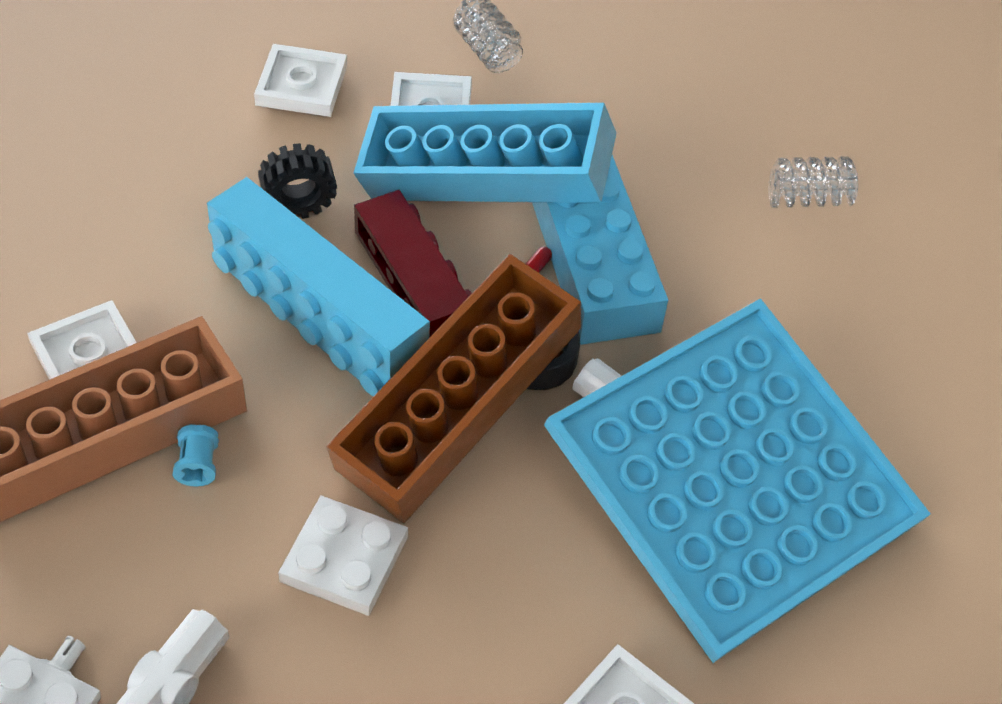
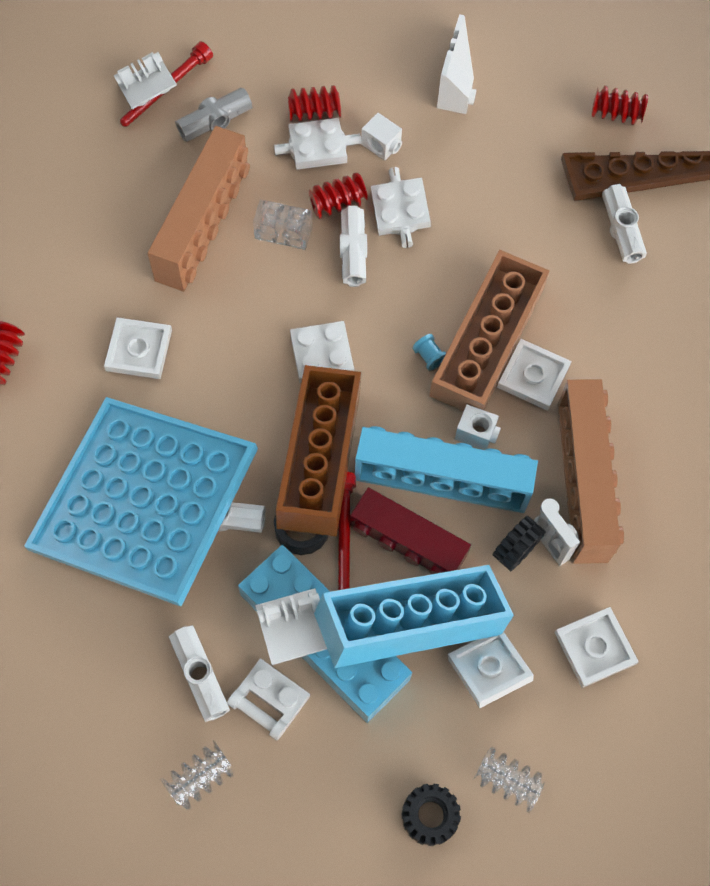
camera: 150 degrees right, 15 degrees up
(143, 202) = (589, 470): none -> nougat brick
(231, 326) = (476, 417): none -> white brick
(246, 148) = (560, 538): none -> white plate
(579, 38) = (450, 809): none -> black tyre
(631, 215) = (291, 626): none -> white hinge
(680, 223) = (274, 690): none -> white plate
(761, 260) = (205, 690): none -> white piece

